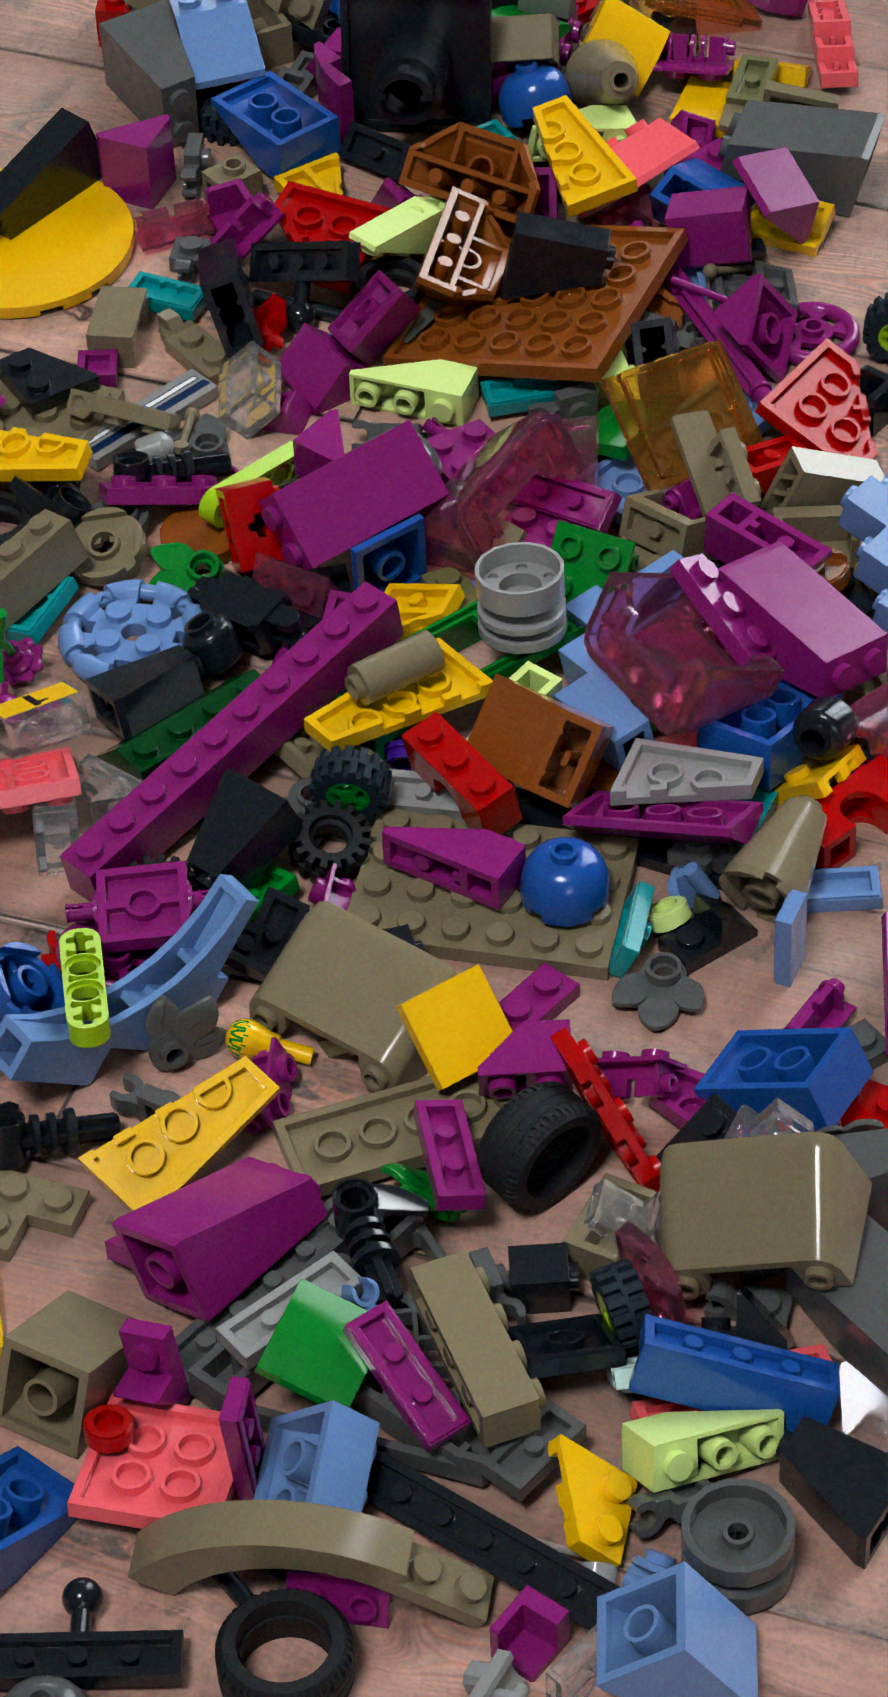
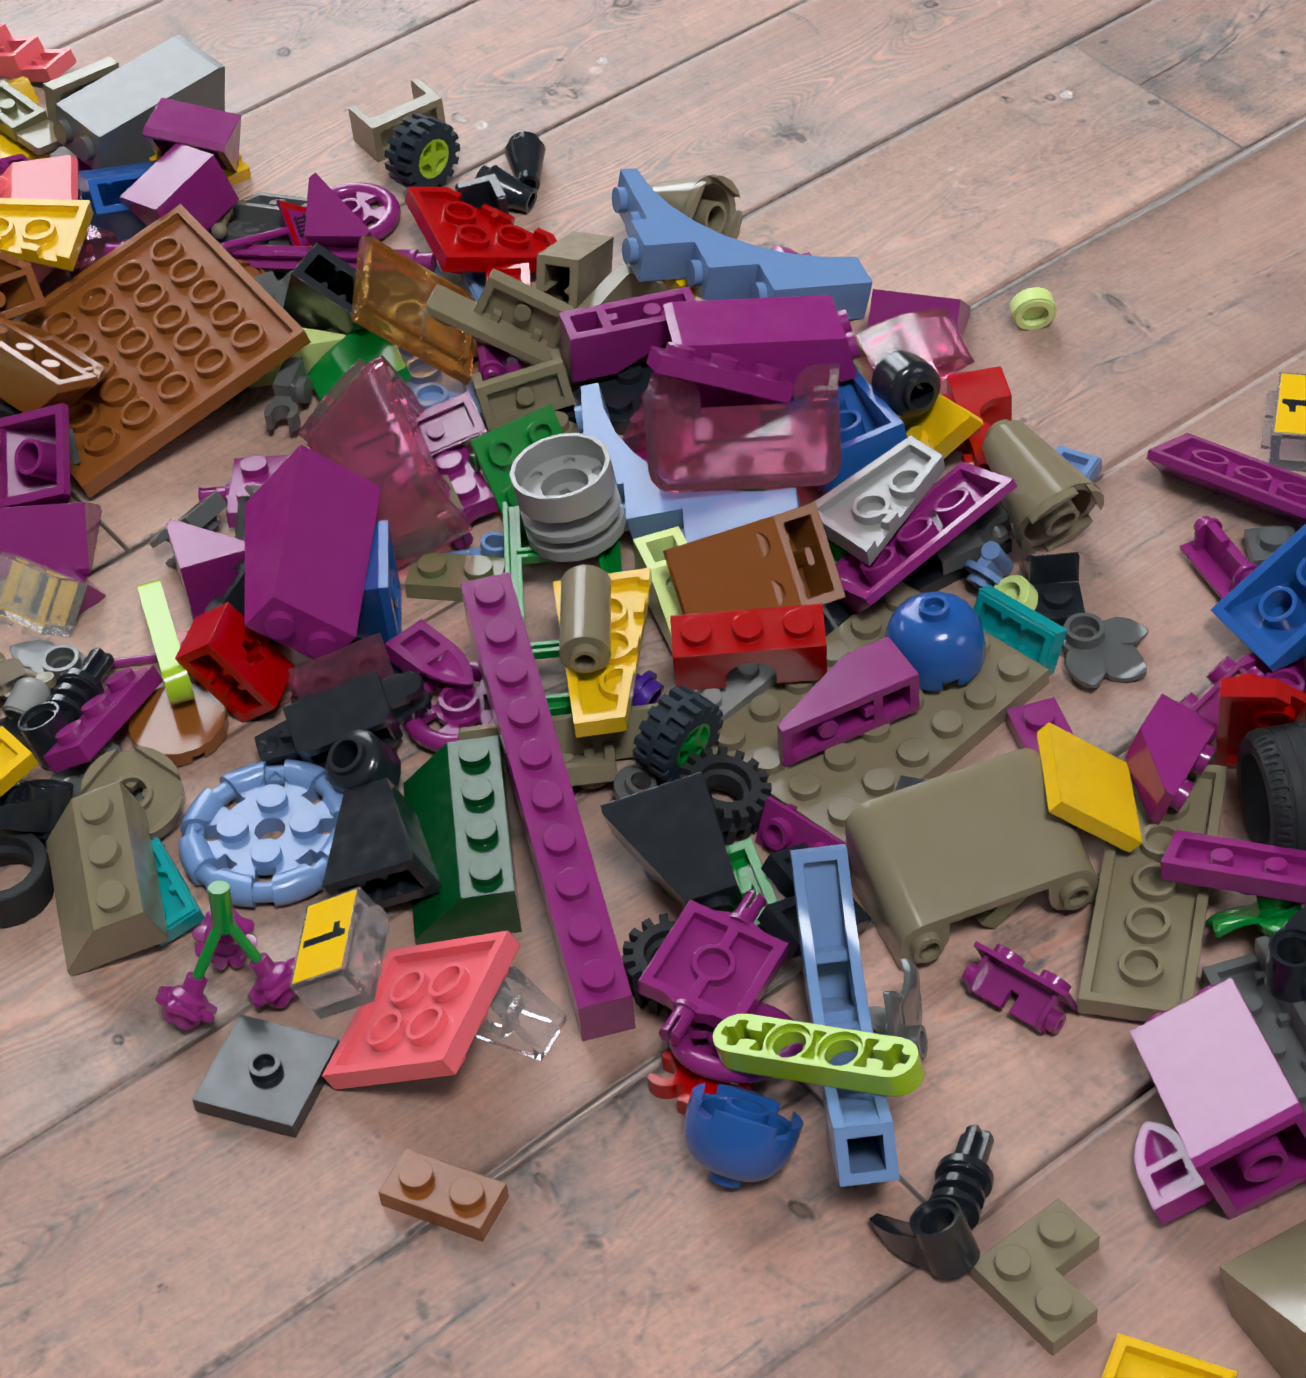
camera: 55 degrees left, 0 degrees up
(103, 785) = (521, 917): clear slope -> none
(142, 1098) = (987, 1091): dark grey plate -> none
(181, 563) = (215, 753): green plate -> none
(181, 1136) = (1066, 1090): yellow wing -> none
(250, 1037) = (944, 970): yellow piece -> none
(418, 389) = (155, 479): yellowish green slope -> none
(424, 603) = (442, 601): yellow wing -> none
(512, 396) = (229, 424): teal plate -> none
(554, 256) = (123, 297): black slope -> none
(790, 937) = (1132, 522): medium blue tile -> none

